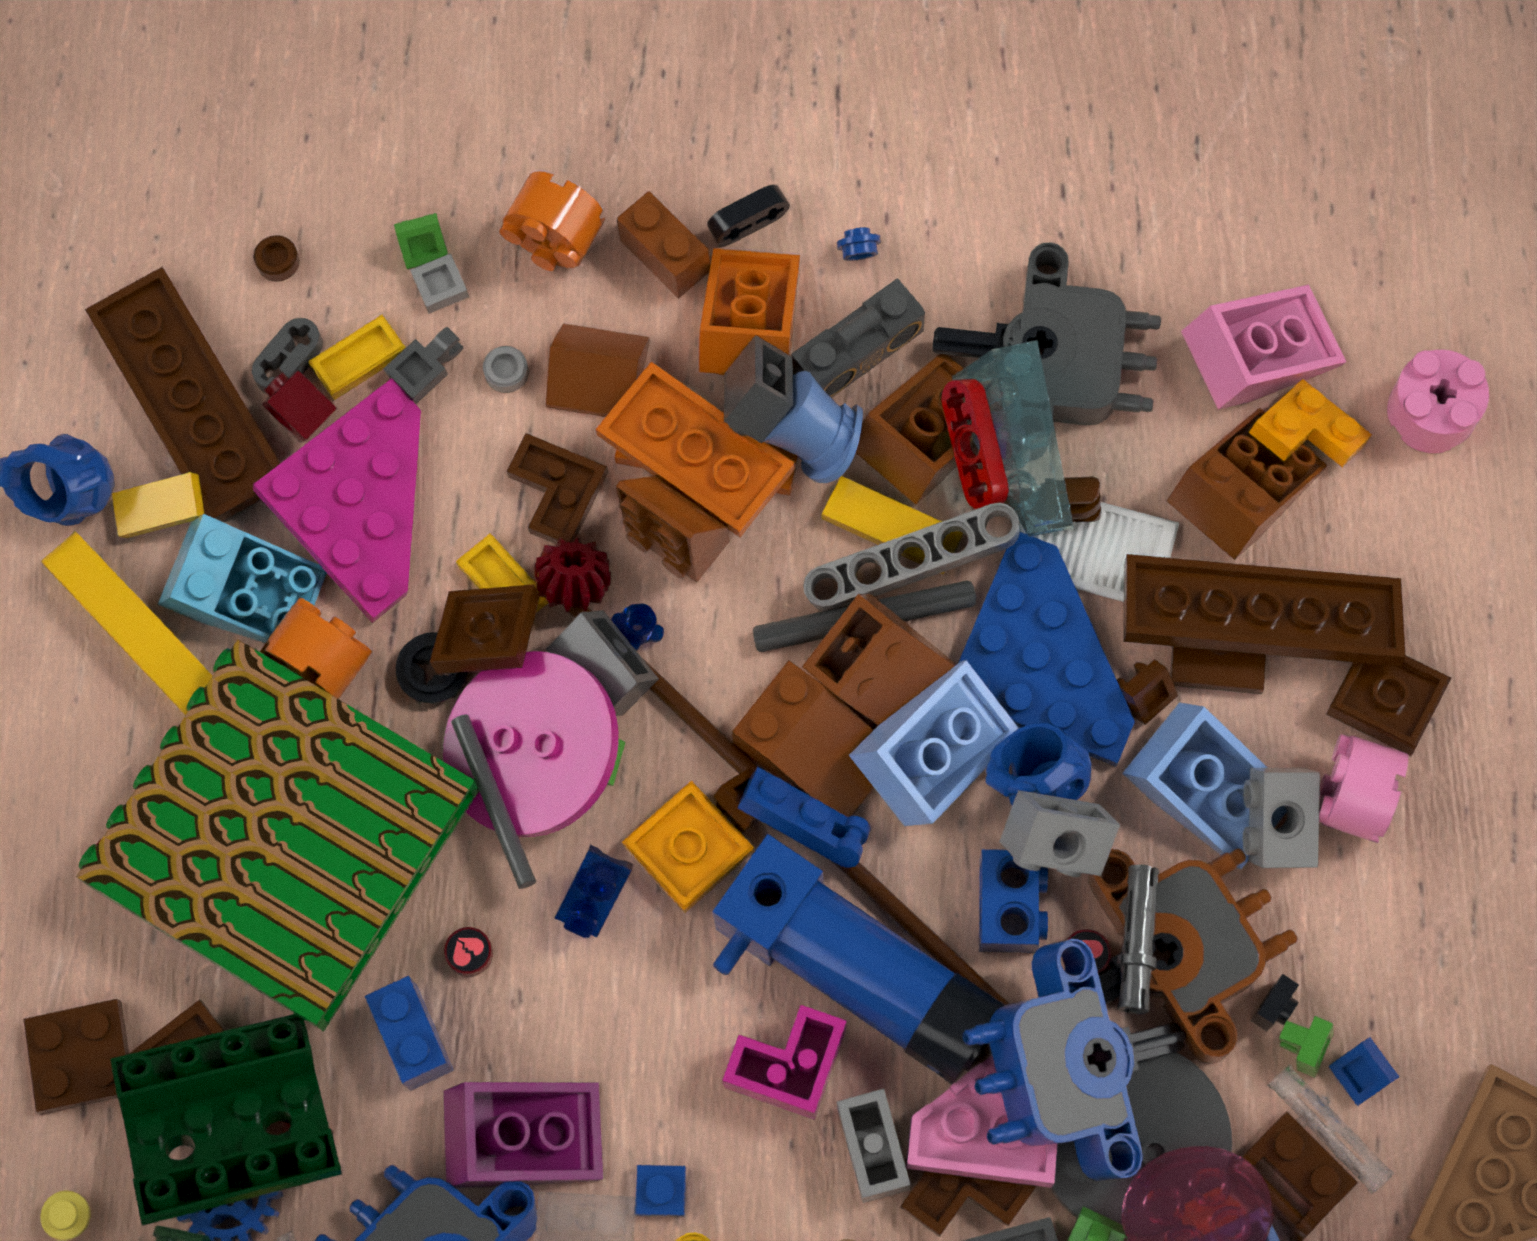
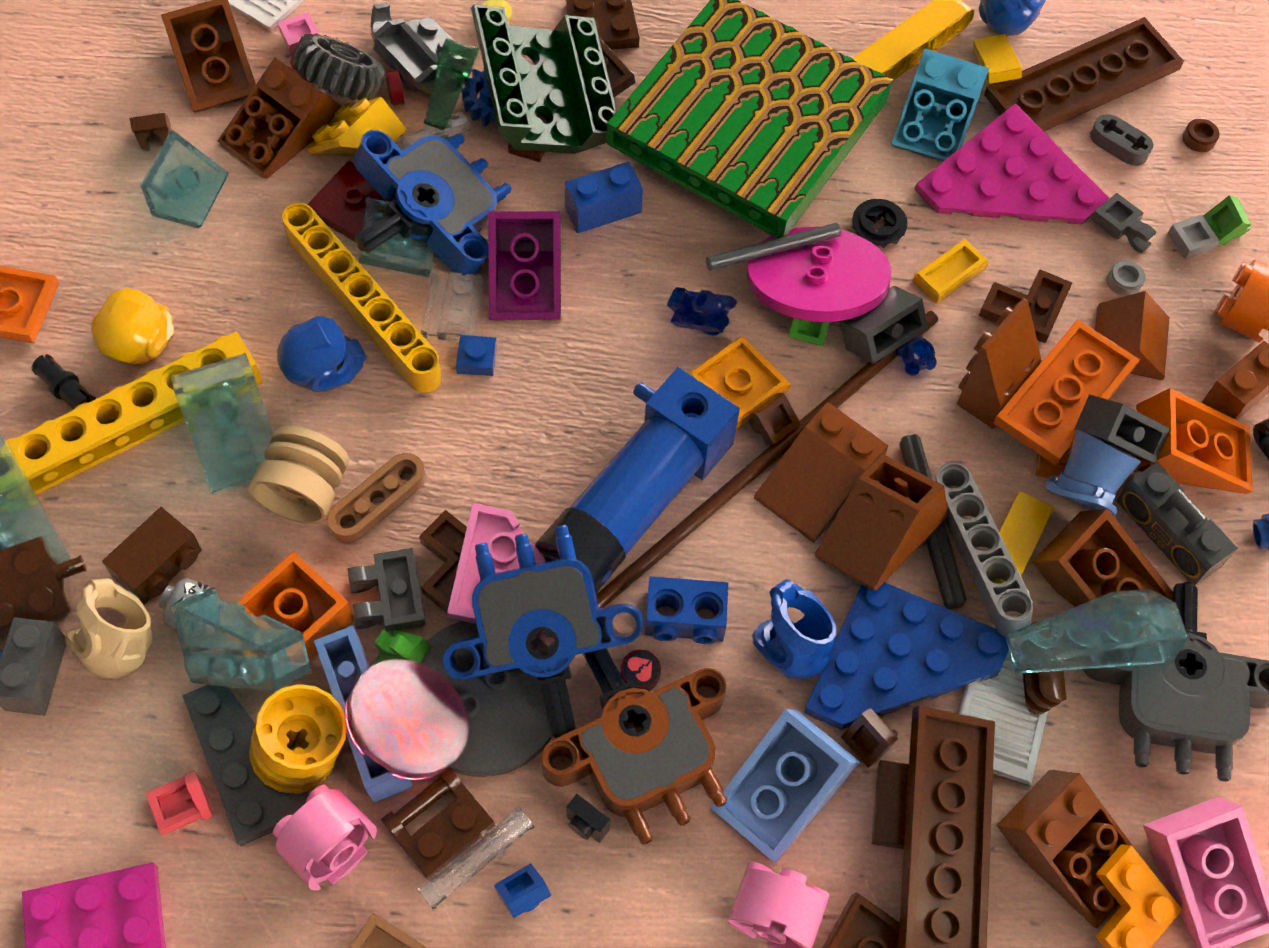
camera: 85 degrees right, 10 degrees down
(297, 404) = (1082, 136): dark red brick -> none
(317, 648) = (887, 140): orange brick -> none
(357, 357) = (1123, 178): yellow tile -> none
(468, 951) = (663, 240): tile -> none
(485, 629) = (908, 245): reddish brown plate -> none
(572, 574) = (956, 307): dark red gear -> none
(792, 1076) = (555, 439): dark pink brick -> none
(805, 818) = (758, 456): blue plate -> none
(873, 1145) = (495, 484): light grey brick -> none
(934, 746) = (820, 554): light blue slope -> none
(960, 432) = (1088, 595): red beam -> none
(1059, 834) = (751, 617): light grey brick -> none
(1137, 952) = (644, 693): dark grey pin -> none
(1298, 838) = (777, 840): light grey brick -> none
(1307, 1043) = (549, 844): bright green tile -> none

